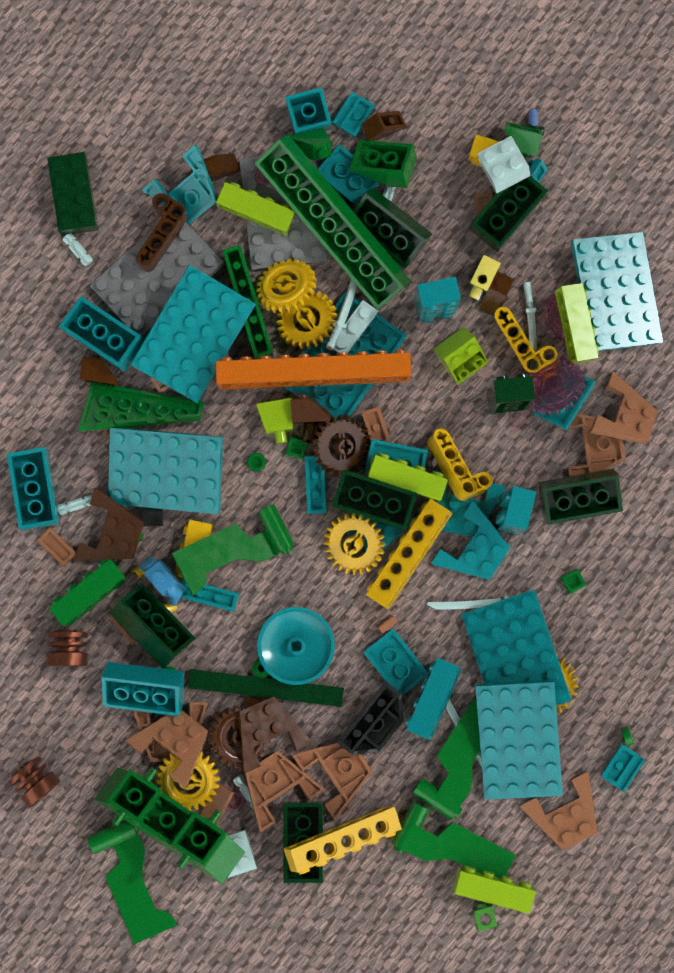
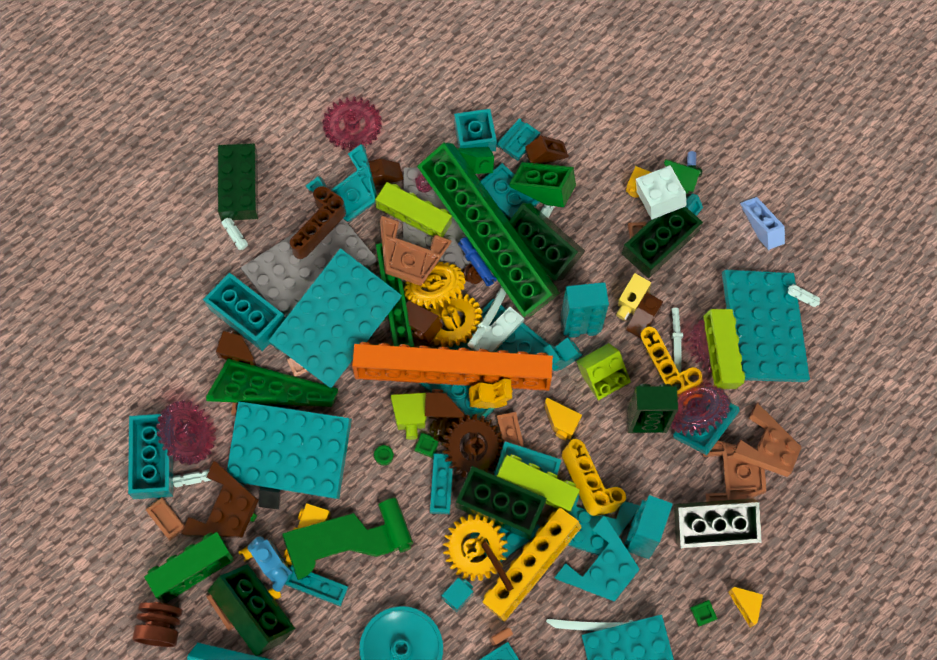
camera: 10 degrees right, 15 degrees down
(71, 463) = (185, 433): none -> clear pink gear
(172, 131) = (352, 114): none -> clear pink gear
(257, 264) = (406, 259): none -> nougat wing
(278, 327) = (423, 322): none -> reddish brown slope
(323, 267) = (471, 274): none -> reddish brown wheel
(330, 263) = (475, 259): none -> blue pin
(342, 589) = (458, 594): none -> teal brick
(353, 394) = (490, 395): none -> yellow brick
(377, 561) = (497, 565): none -> reddish brown piece
(419, 342) = (563, 354): none -> teal brick
(425, 409) = (562, 419): none -> yellow slope
(610, 181) = (765, 224): none -> light blue slope
(614, 569) = (747, 603): none -> yellow slope
(653, 256) = (803, 295): none -> light aqua axle

